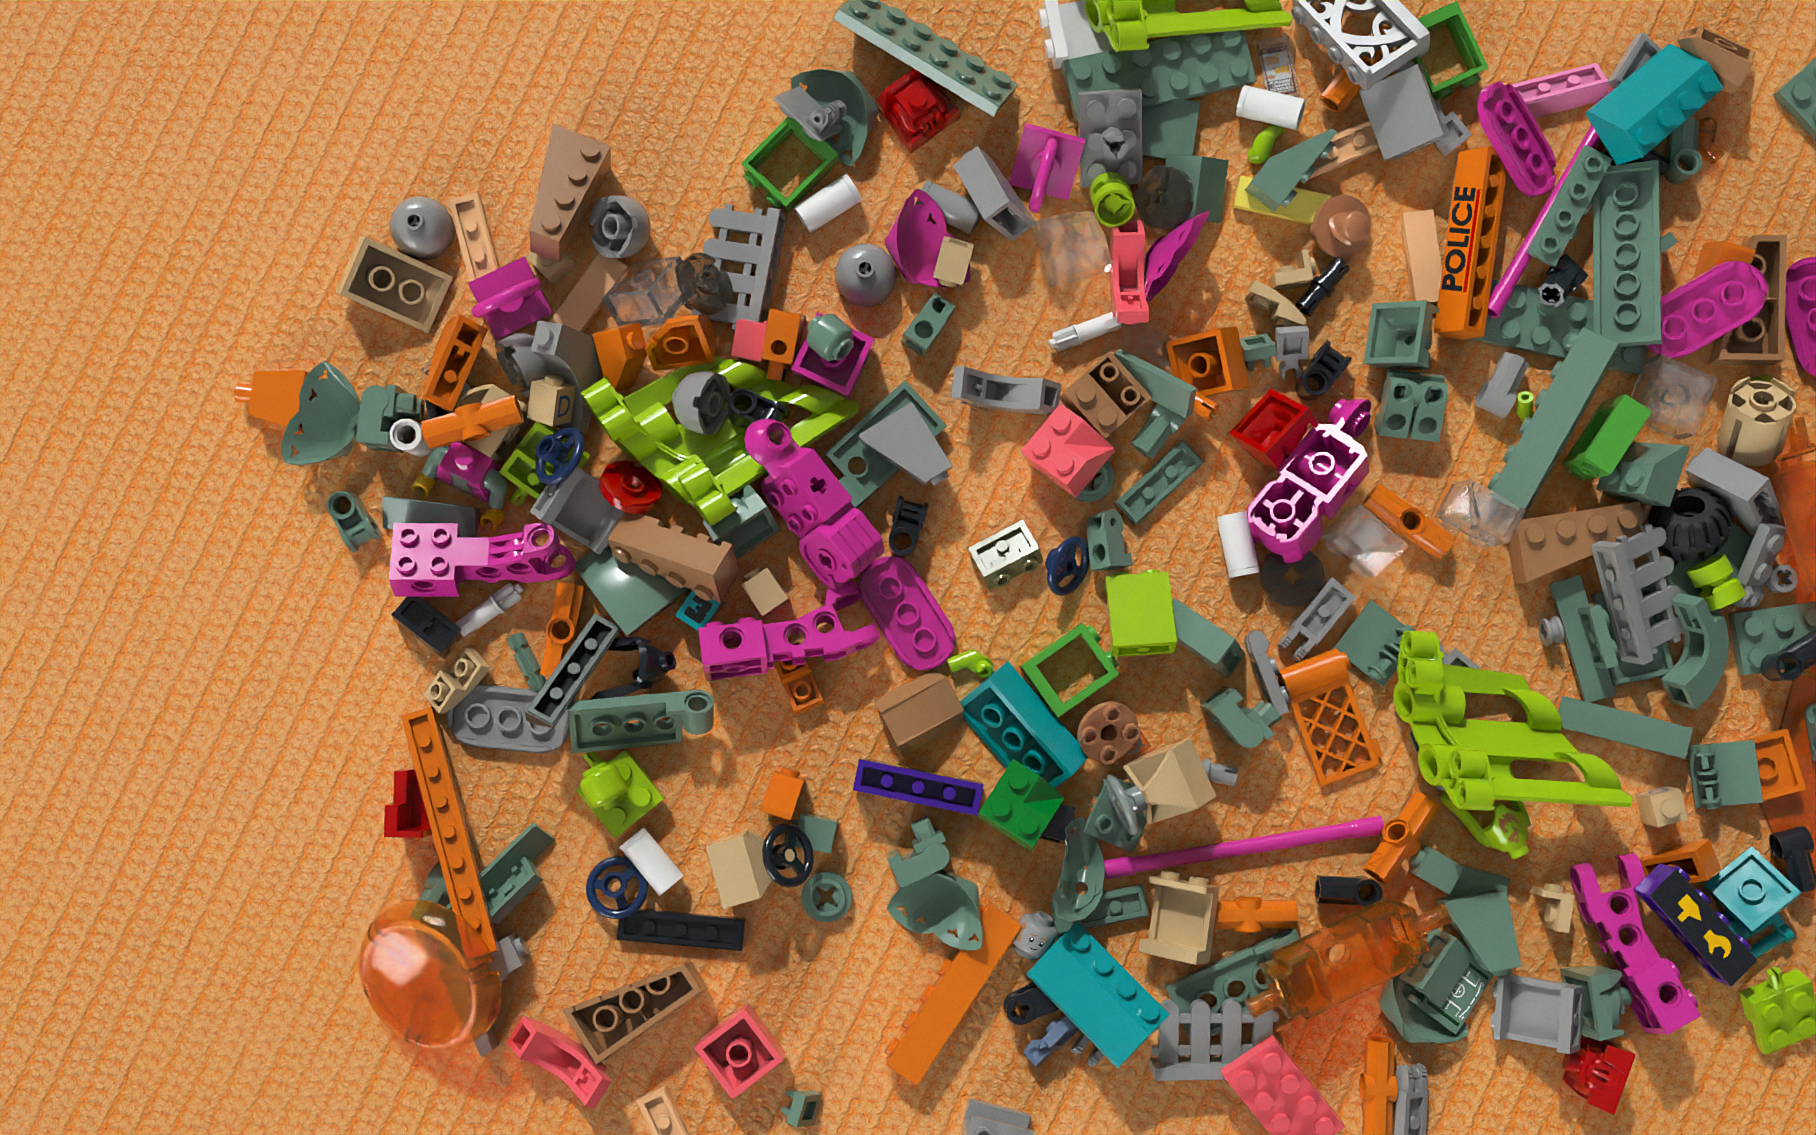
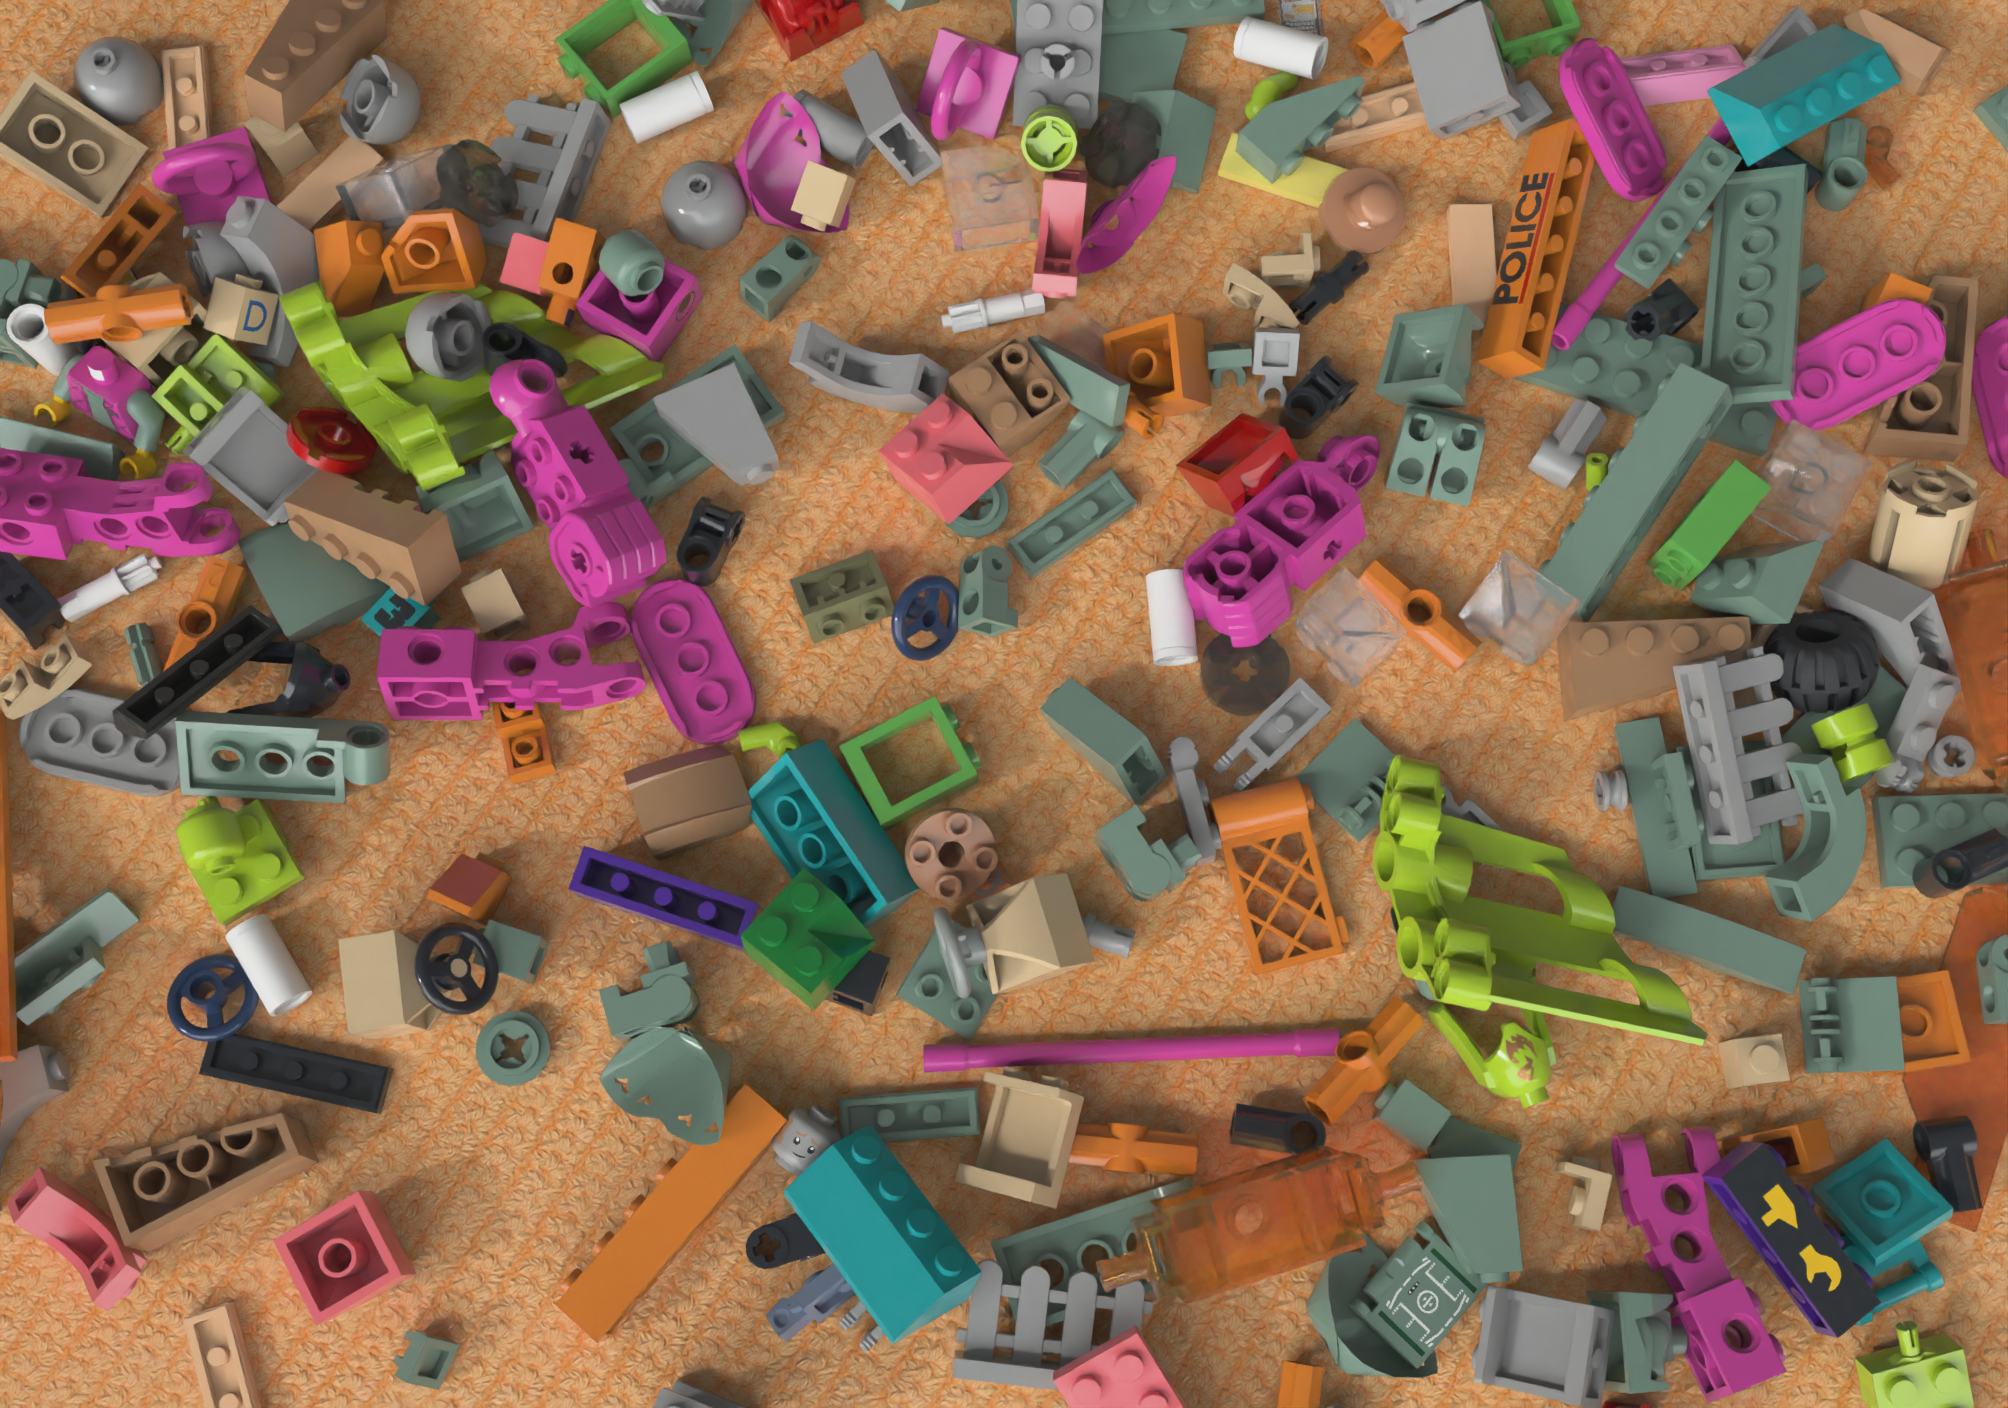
camera: 15 degrees right, 10 degrees down
(556, 453) = (233, 372): dark blue piece -> none
(1080, 851) = (887, 1029): sand green piece -> none
(1140, 613) = (1017, 694): lime panel -> none
(1439, 967) = (1400, 1261): sand green panel -> none

